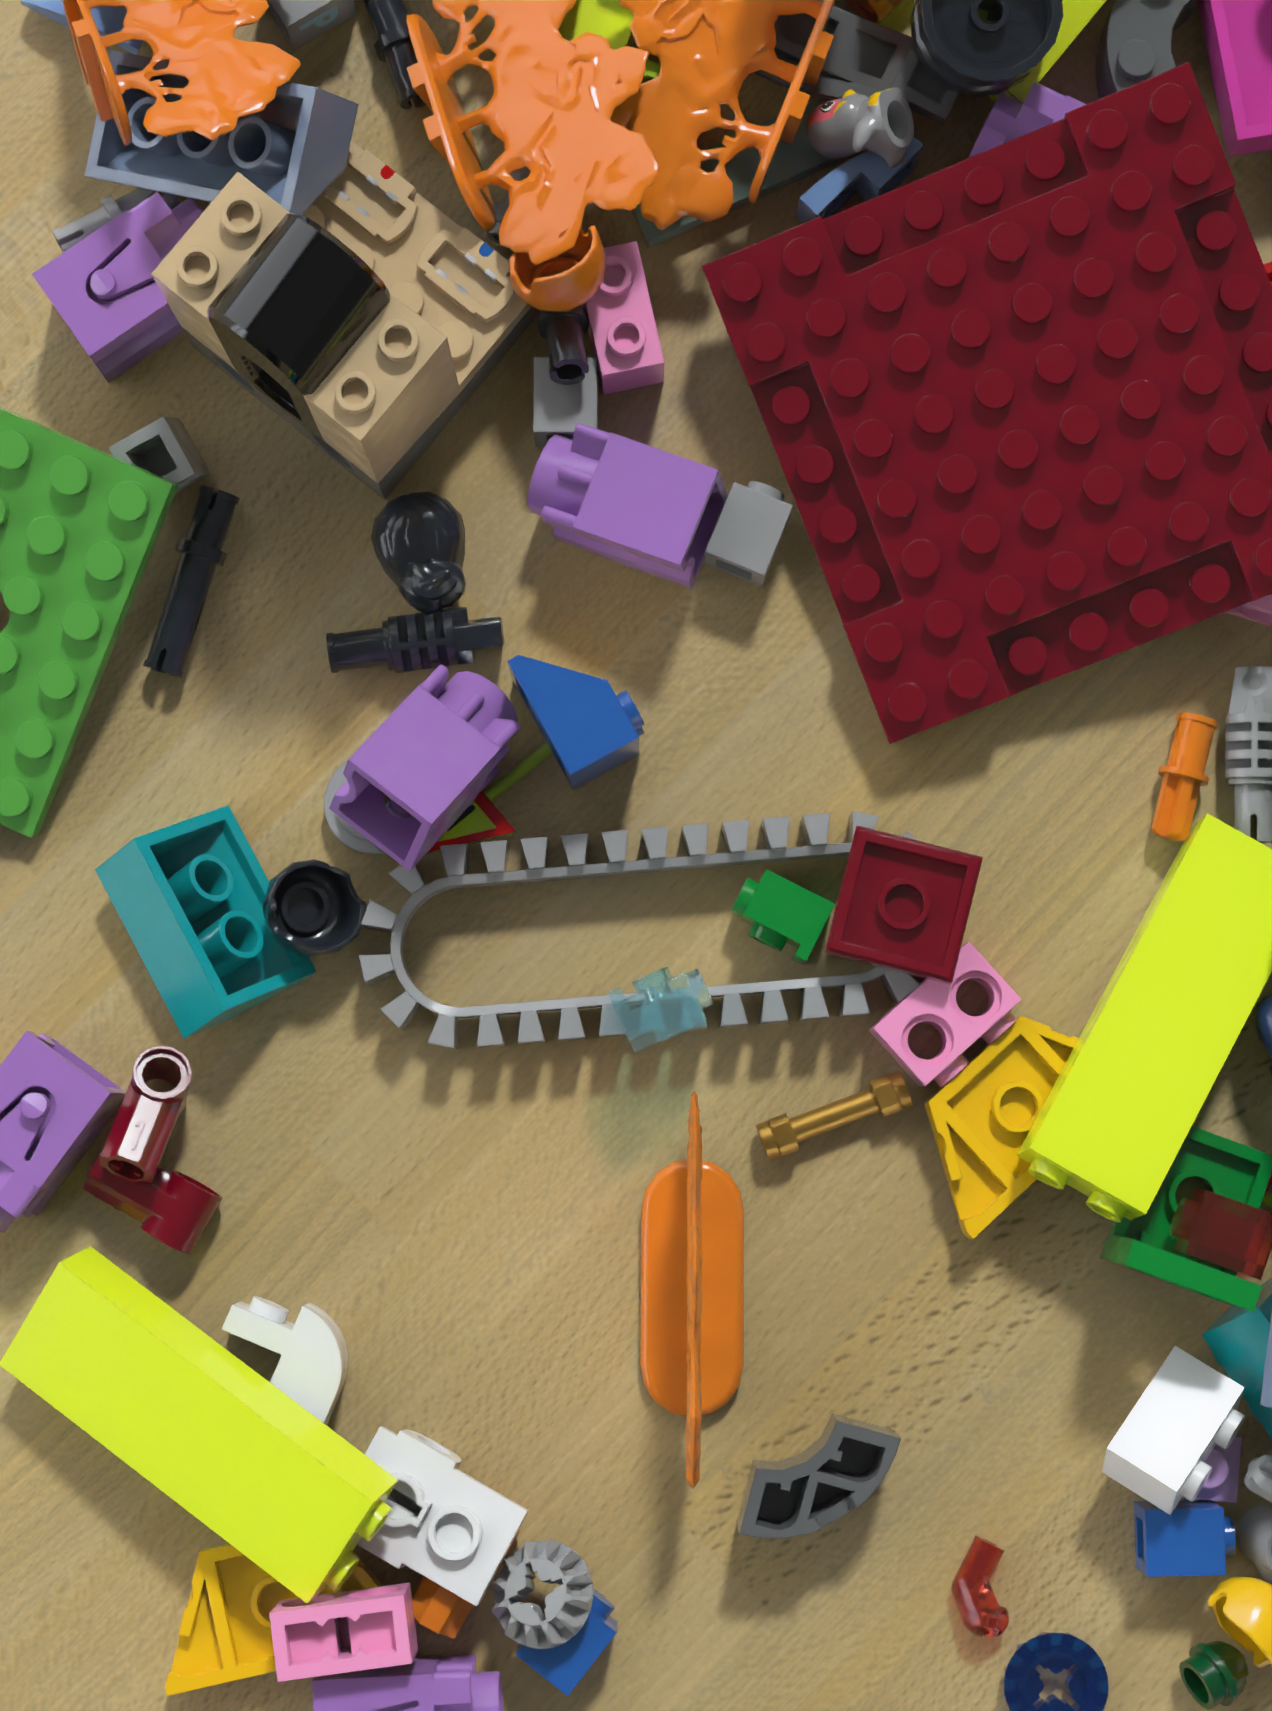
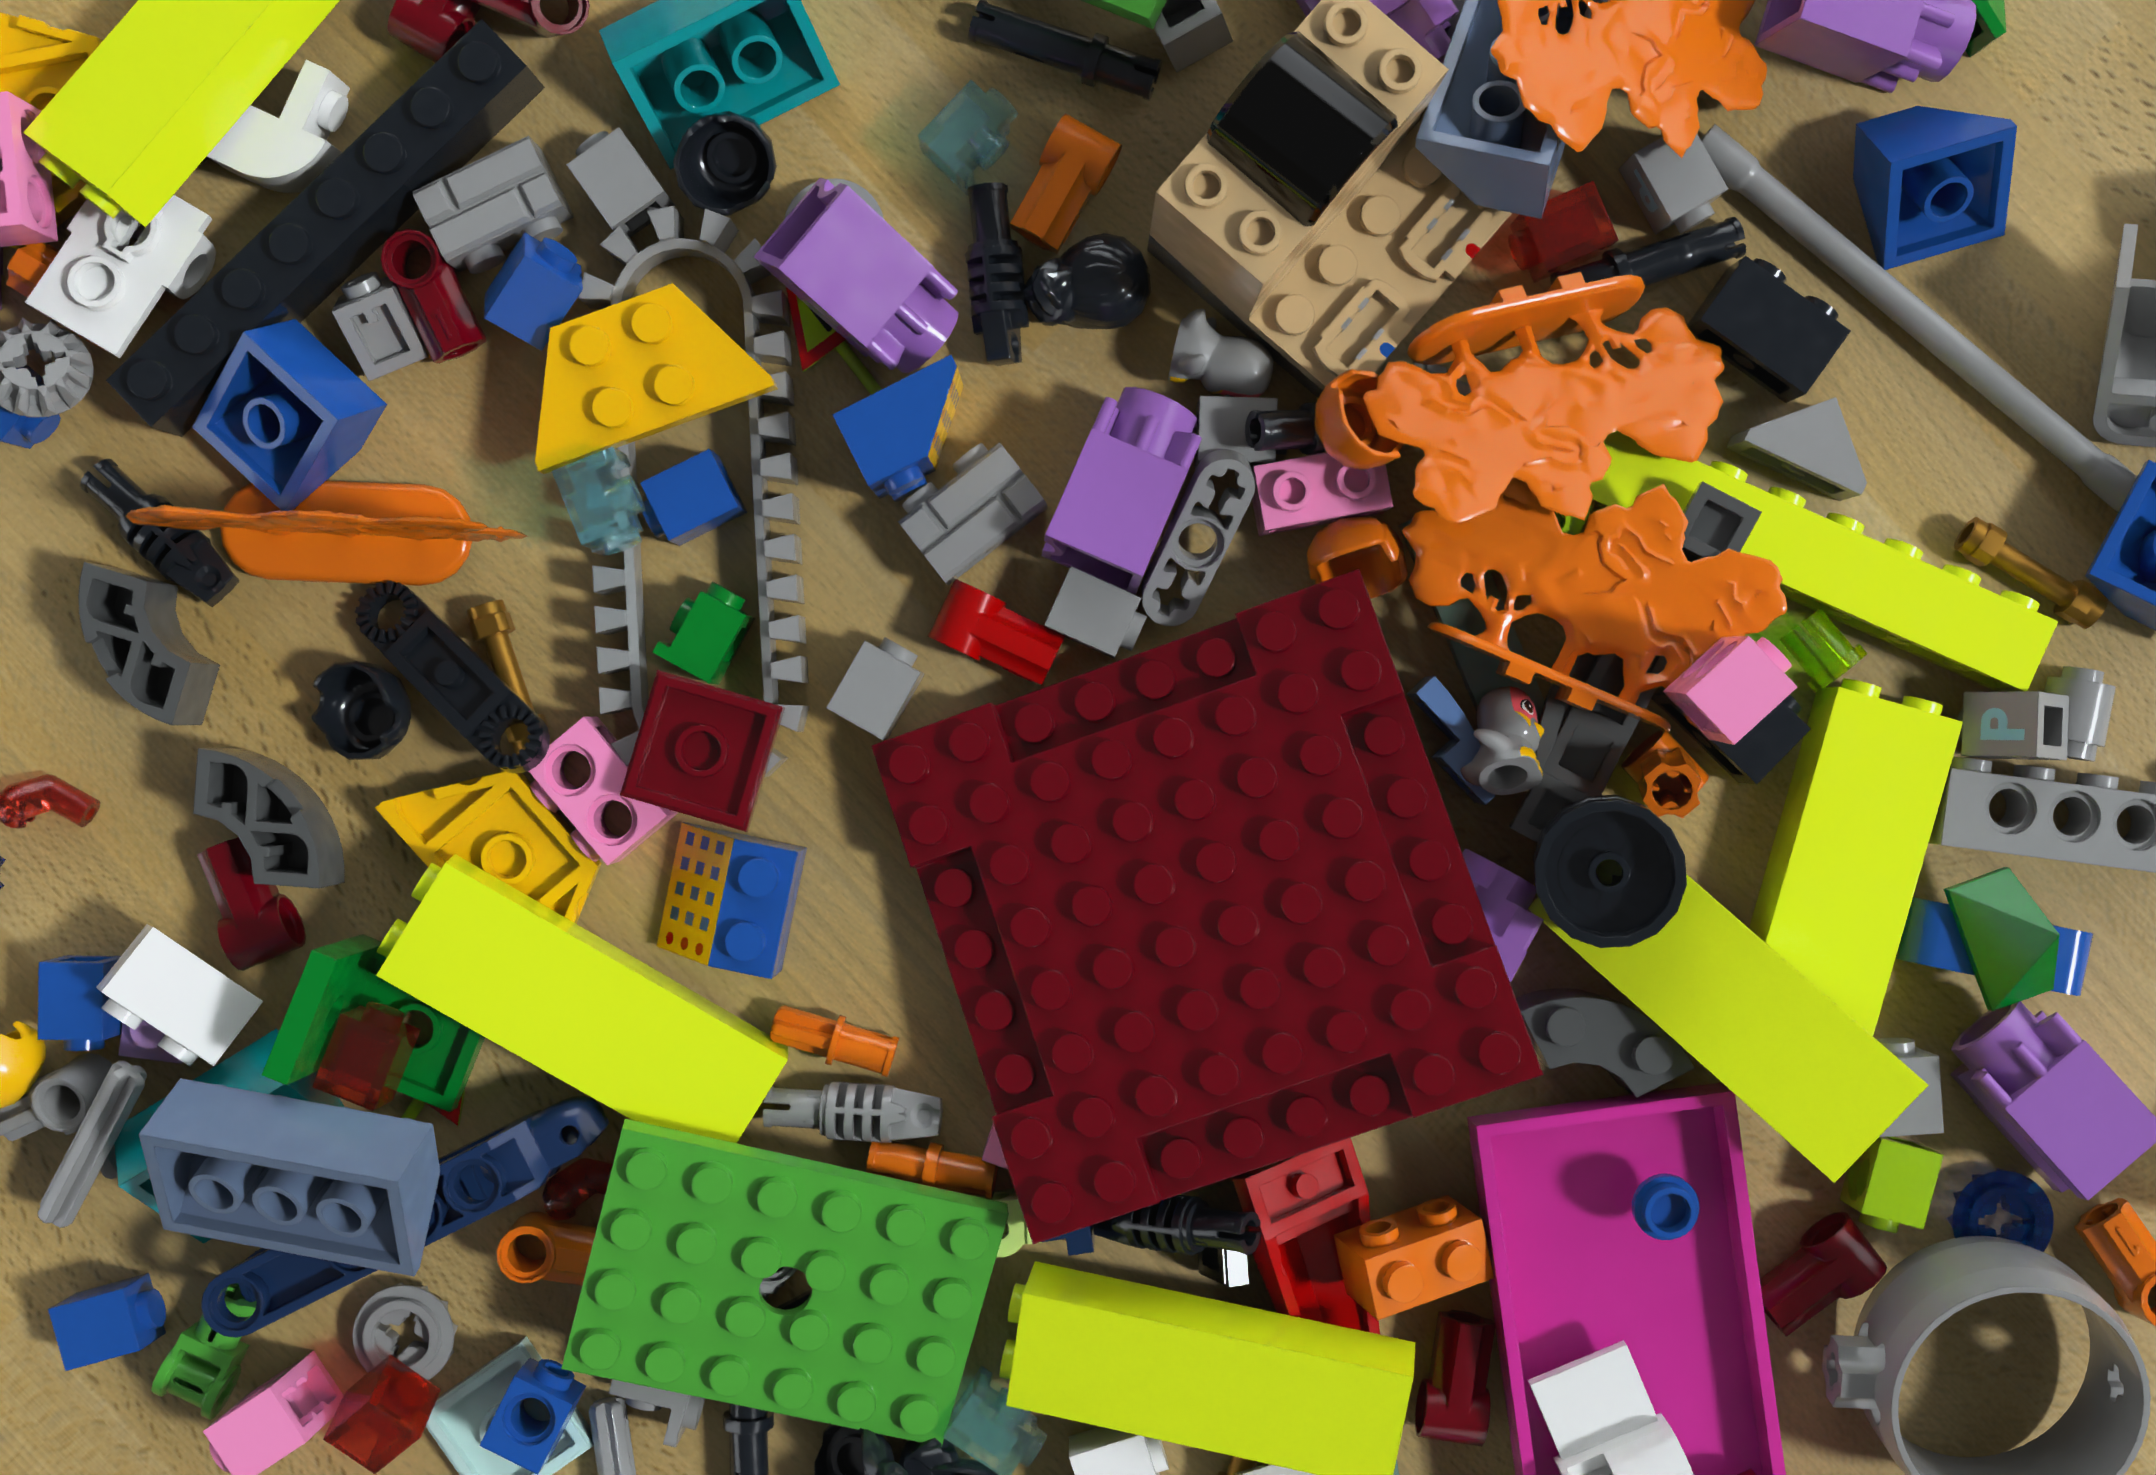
camera: 95 degrees right, 5 degrees up
(279, 670) = (968, 133): none -> clear light blue brick
(309, 569) = (1071, 169): none -> orange piece
(333, 1016) = (618, 181): none -> light grey brick
(361, 78) = (1569, 233): none -> clear red brick
(361, 1141) = (492, 204): none -> light grey brick
(391, 1309) = (330, 225): none -> black brick
(446, 1093) = (534, 289): none -> blue brick
(460, 1196) = (434, 299): none -> dark red piece
(482, 1256) = (378, 325): none -> light grey bracket
(498, 416) = (1223, 363): none -> light grey animal
(529, 981) = (636, 375): none -> yellow wing
(577, 1343) = (287, 412): none -> blue slope
(640, 395) = (1200, 489): none -> light grey beam
(648, 932) = (691, 498): none -> blue brick
(652, 655) = (971, 511): none -> light grey brick
(678, 281) = (1361, 545): none -> orange hair
(725, 1453) = (175, 553): none -> black hinge
(767, 640) = (984, 628): none -> red piece
(830, 742) = (877, 687): none -> light grey brick
(837, 1166) = (452, 677): none -> black plate
(875, 1259) = (361, 709): none -> black hair
(985, 1342) = (273, 816): none -> dark grey brick
(1048, 883) = (731, 900): none -> blue slope
(1089, 1364) = (255, 917): none -> dark red piece

